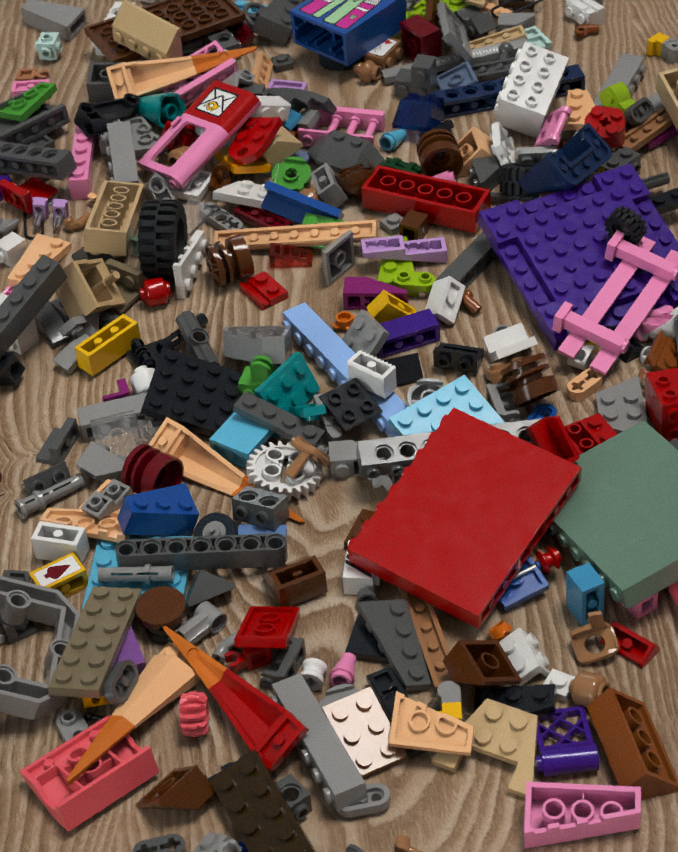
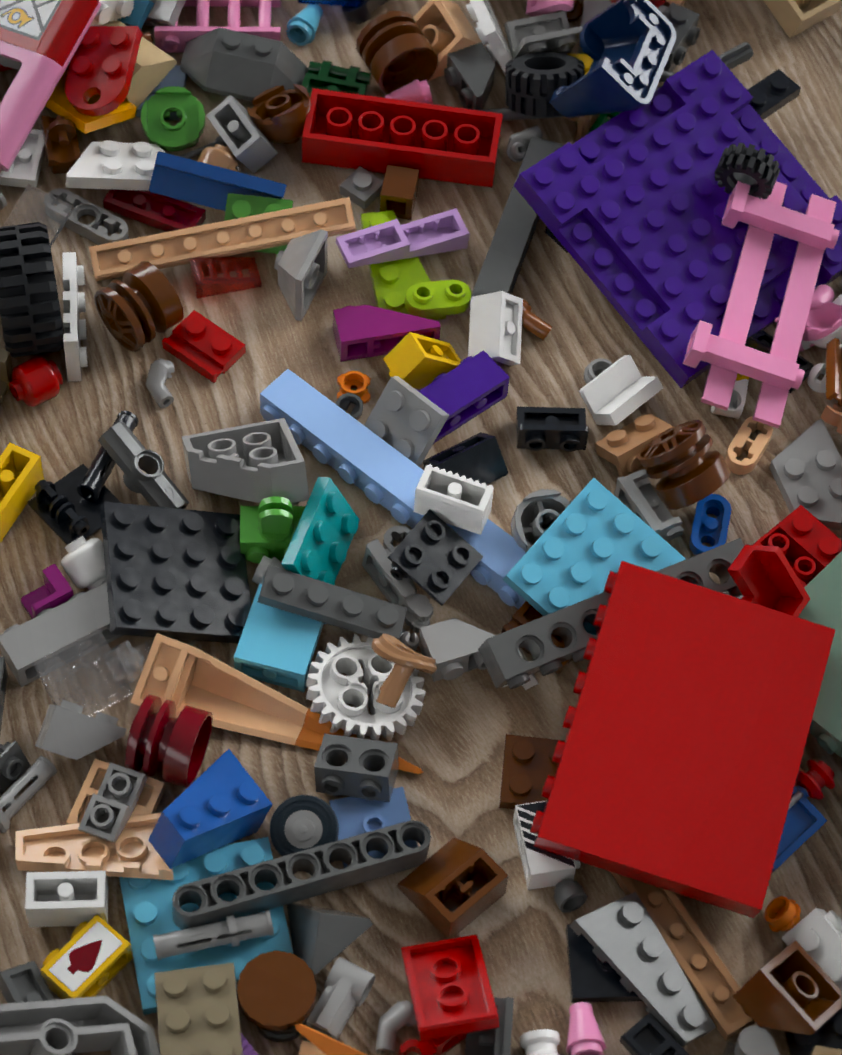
camera: 25 degrees left, 15 degrees up
(226, 305) = (155, 383): none -> light grey arm
(308, 411) = (369, 577): teal plate -> none
(336, 326) = (345, 400): none -> dark grey hinge

